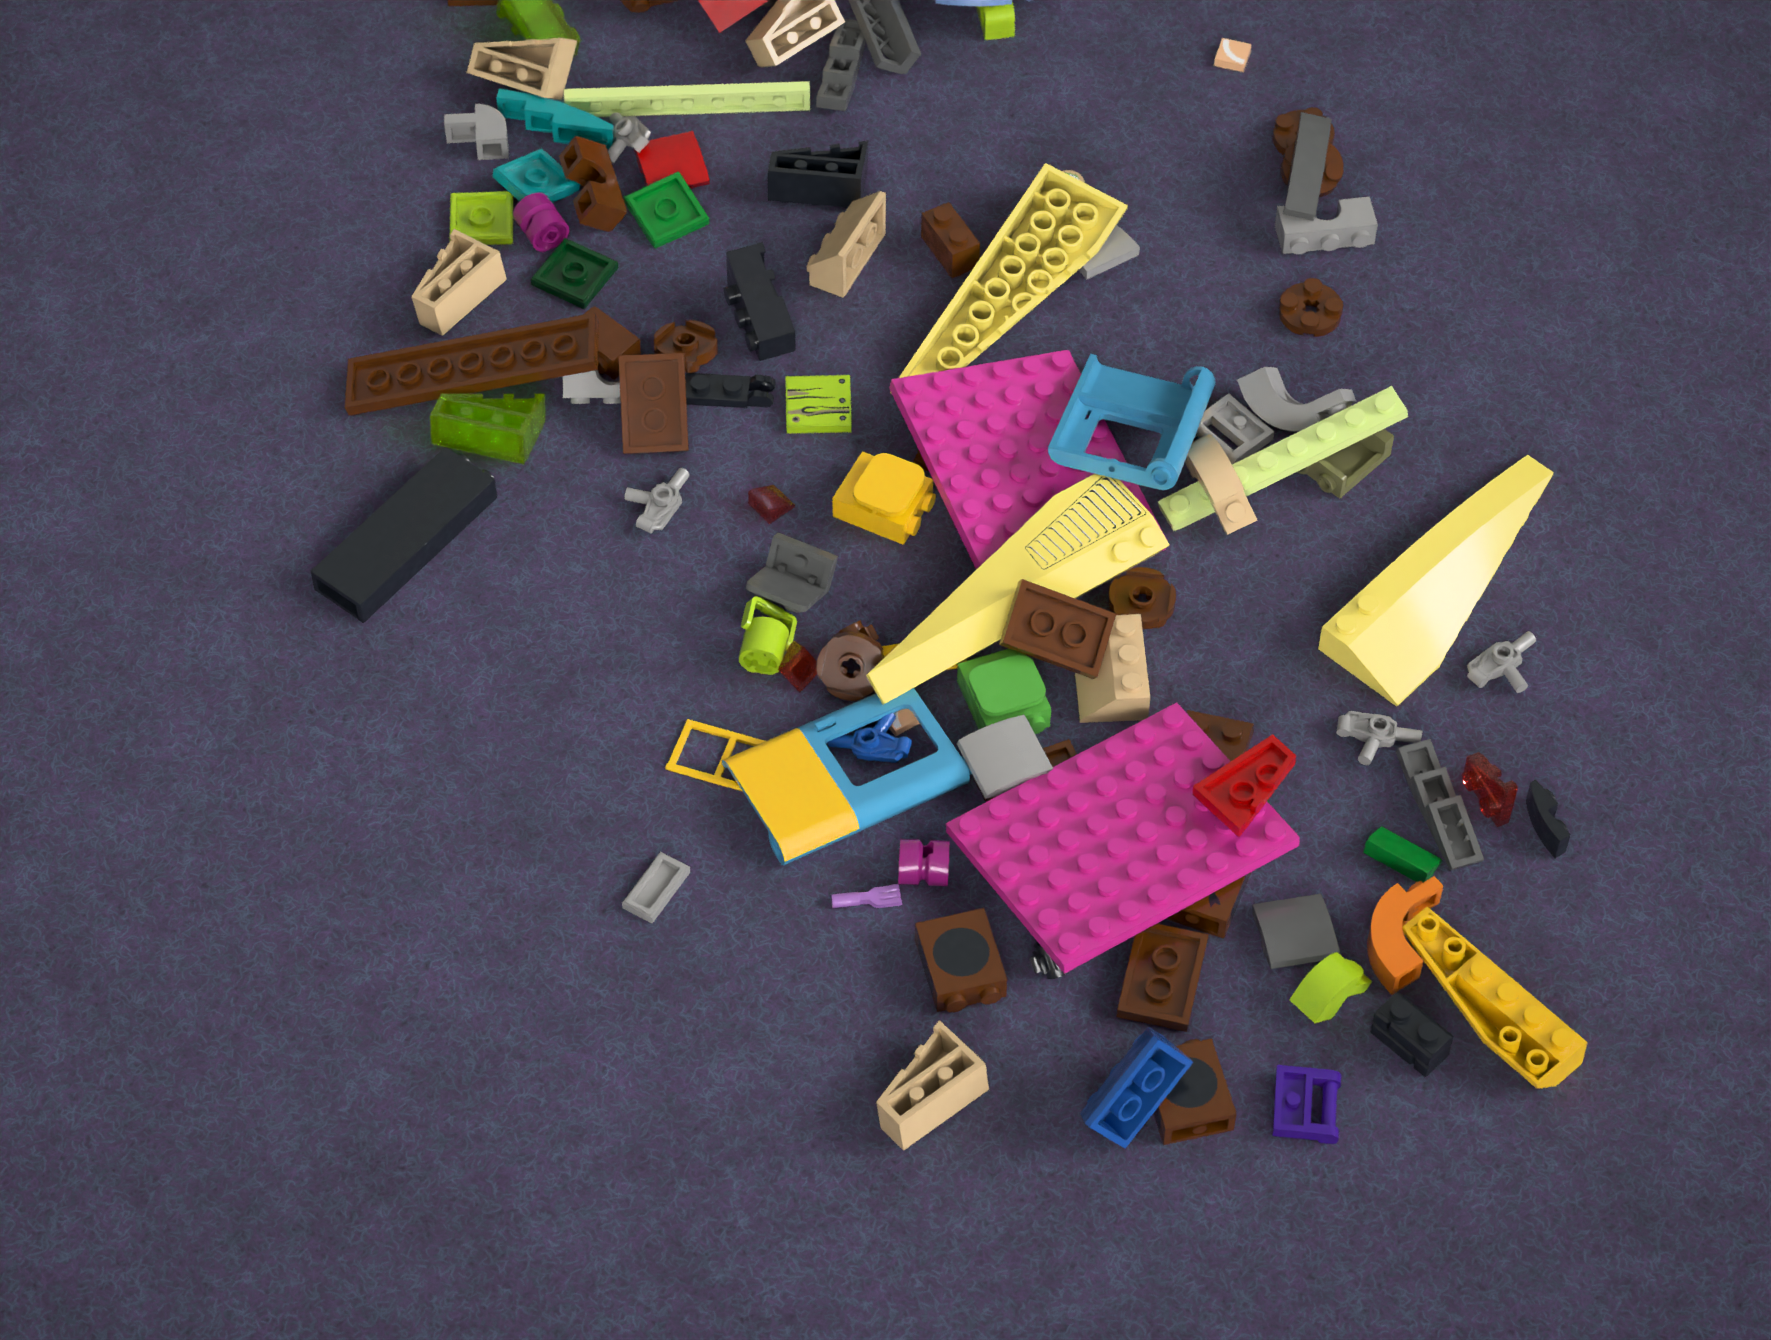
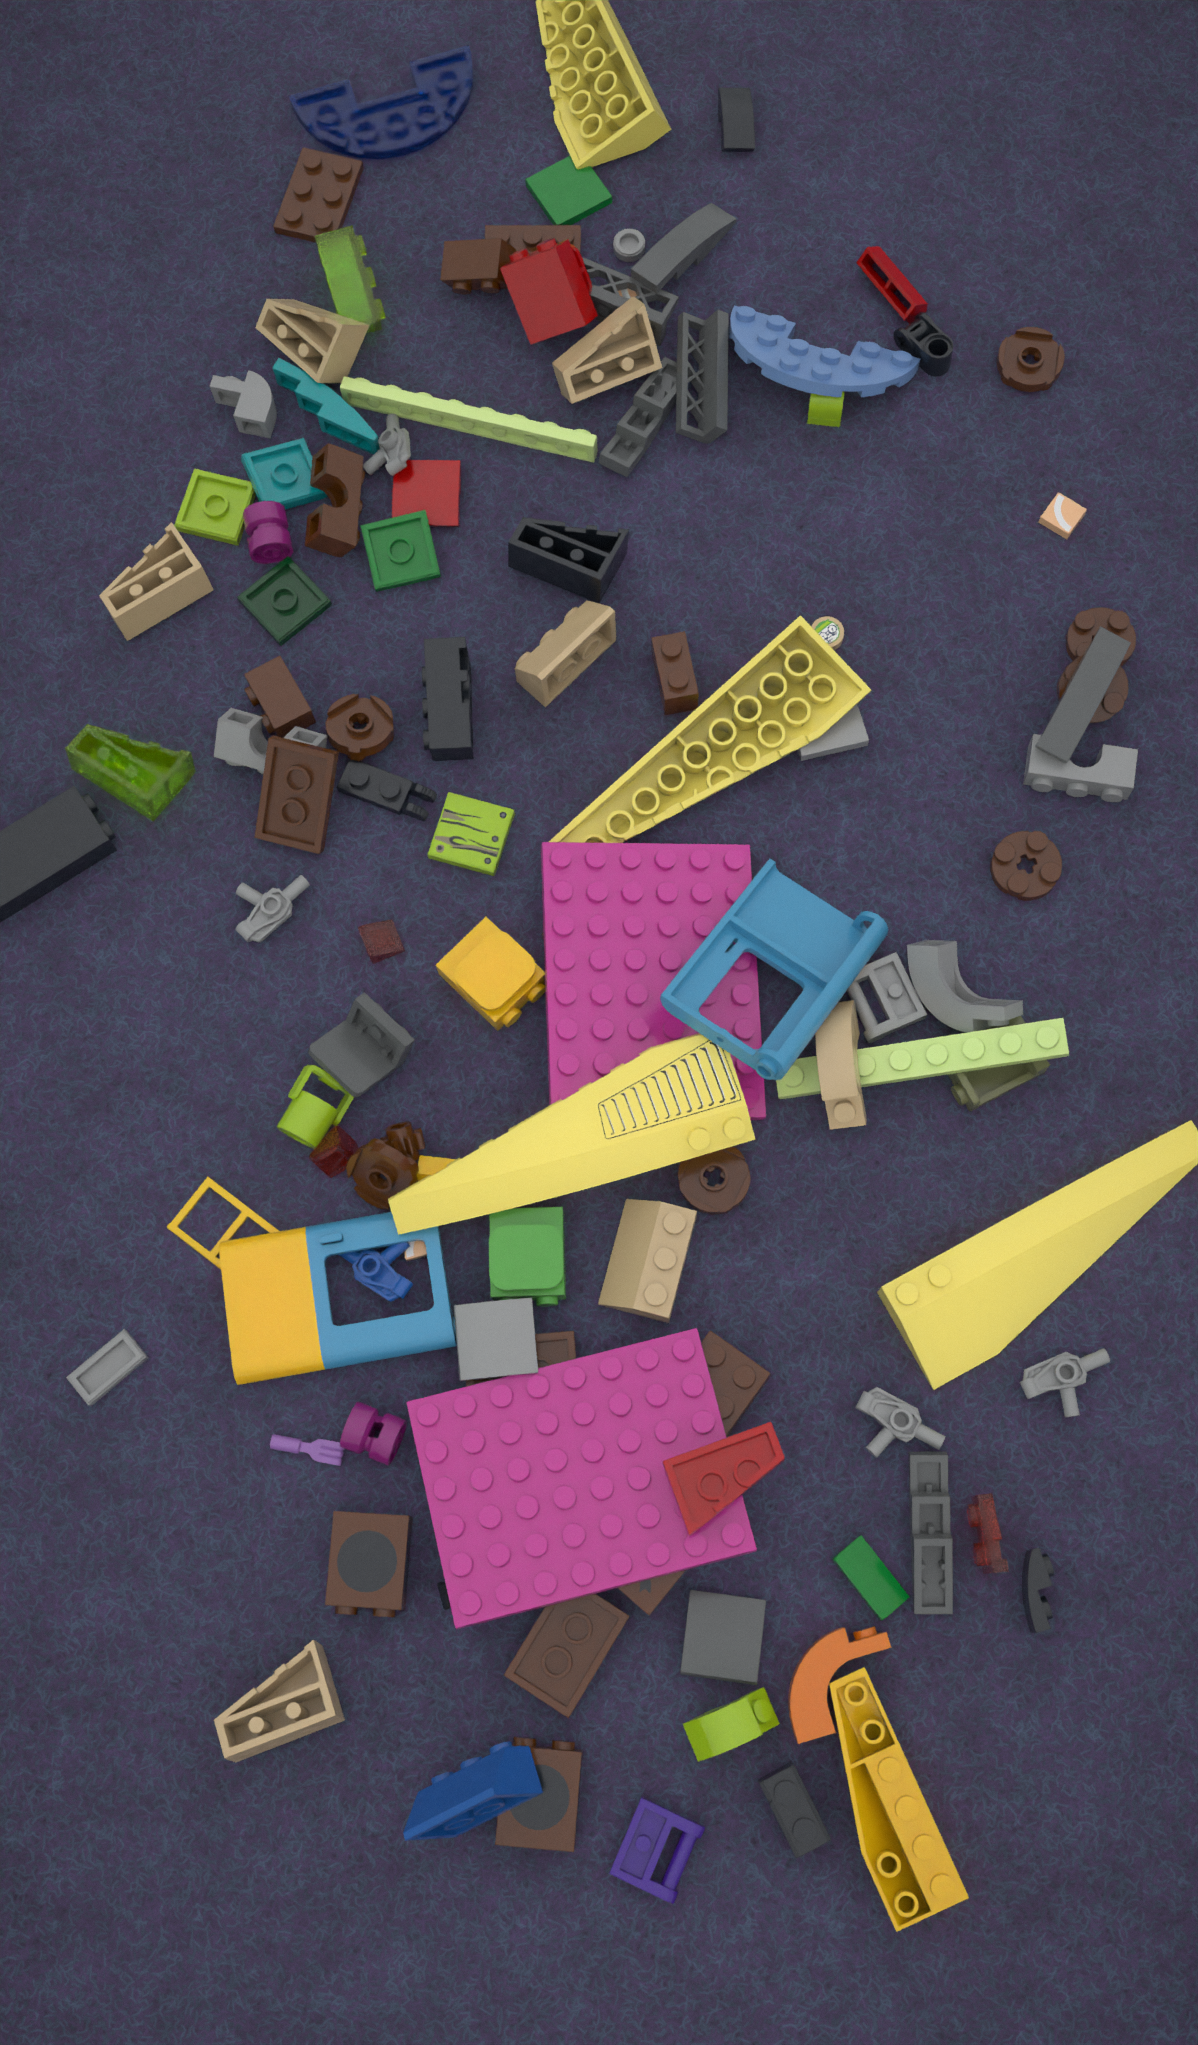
camera: 25 degrees right, 20 degrees up
(472, 364) = (133, 696): reddish brown plate -> none
(1057, 629) = (598, 1211): reddish brown plate -> none

